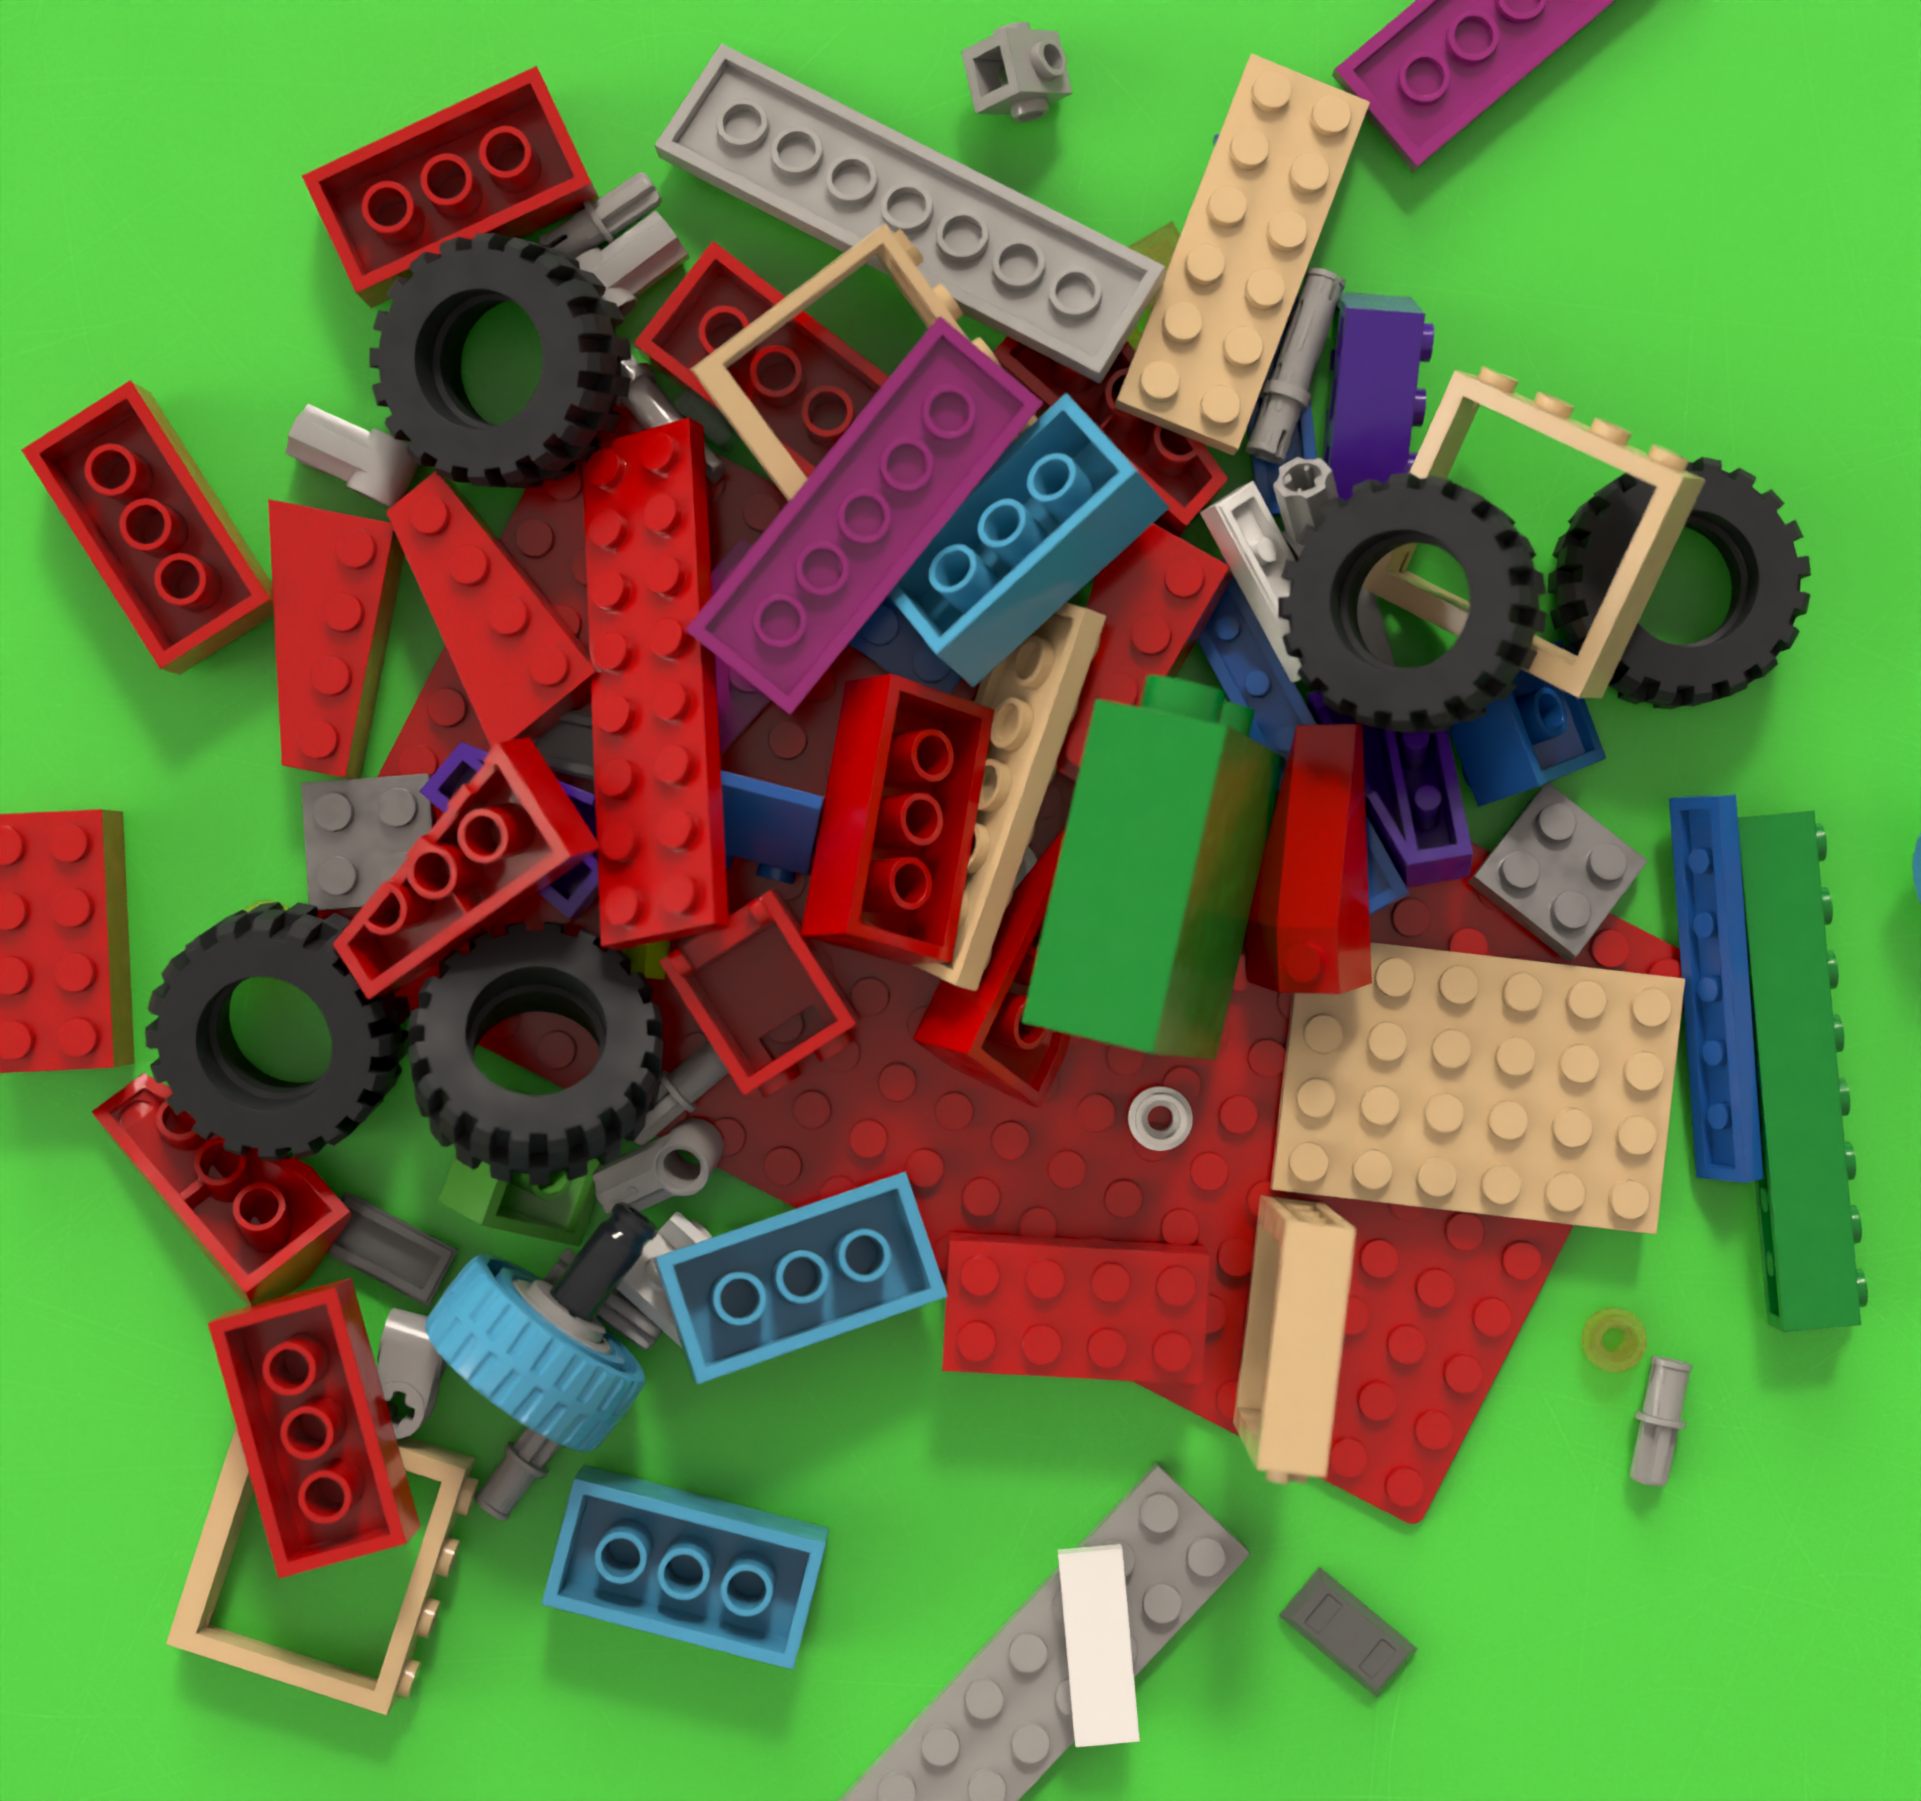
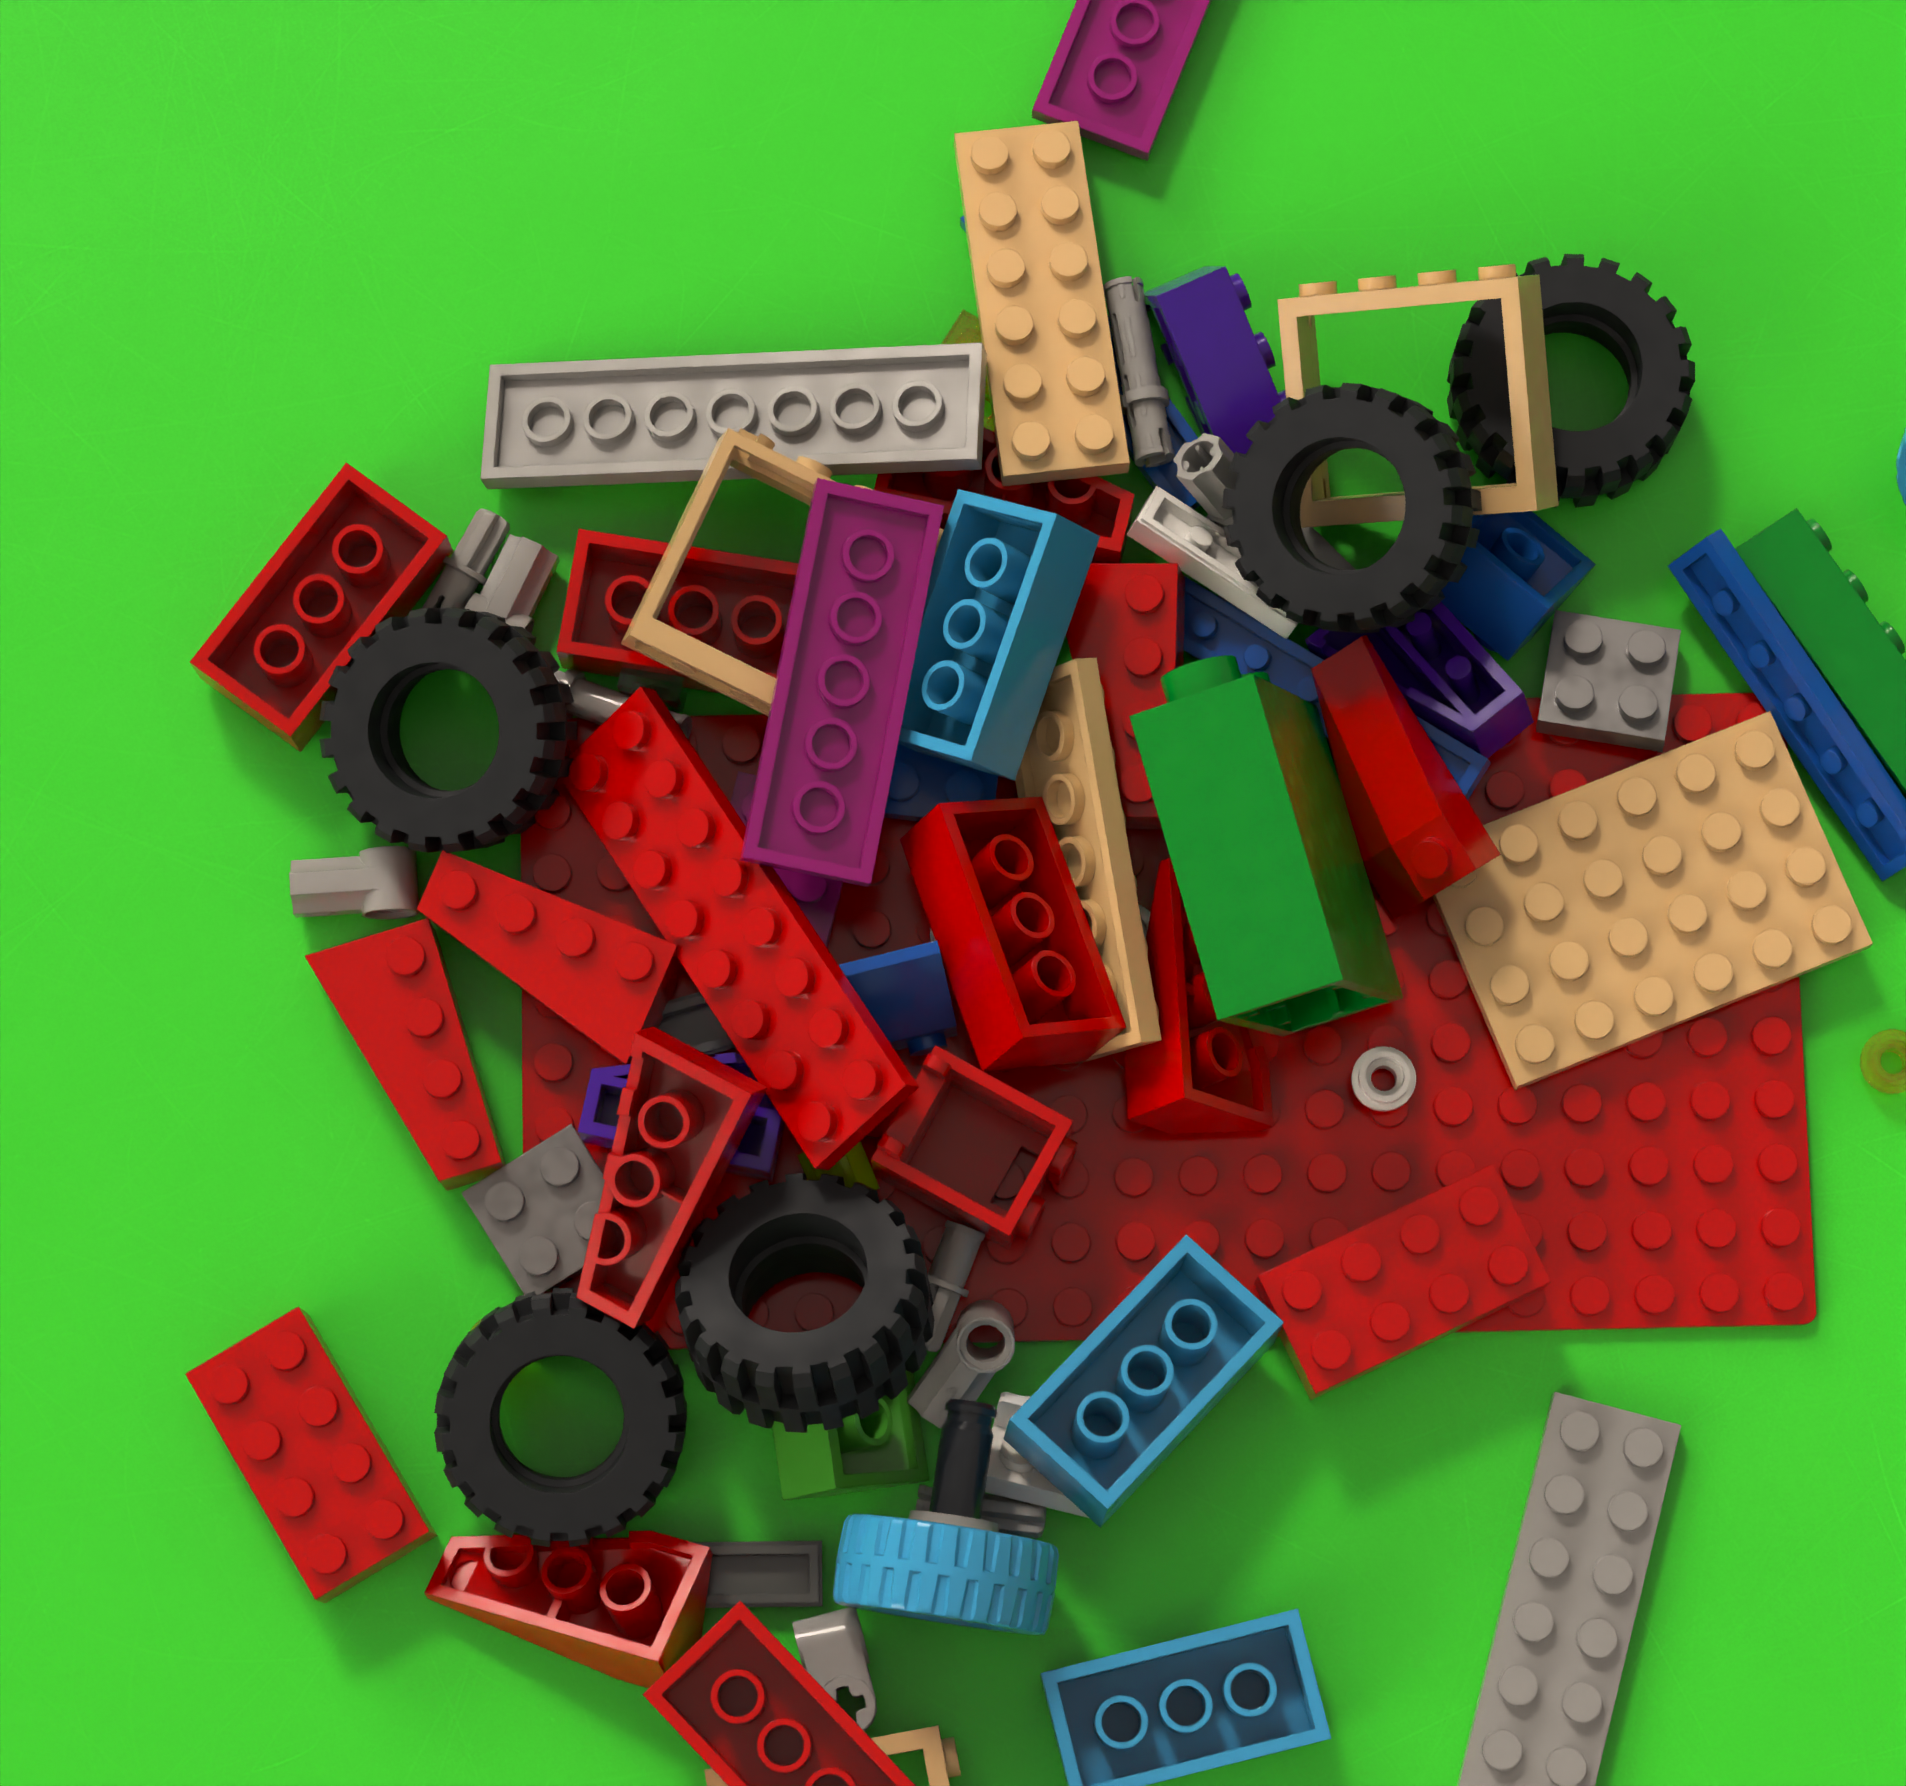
camera: 25 degrees left, 10 degrees down
(153, 527) = (214, 1038): red brick -> none
(516, 1473) = (986, 1695): light grey axle -> none
(1017, 72) = (762, 254): light grey brick -> none
(1098, 1645) = (1591, 1576): white tile -> none
(1293, 1337) = (1601, 1182): tan window -> none
(1348, 1632) = (1808, 1452): dark grey tile -> none

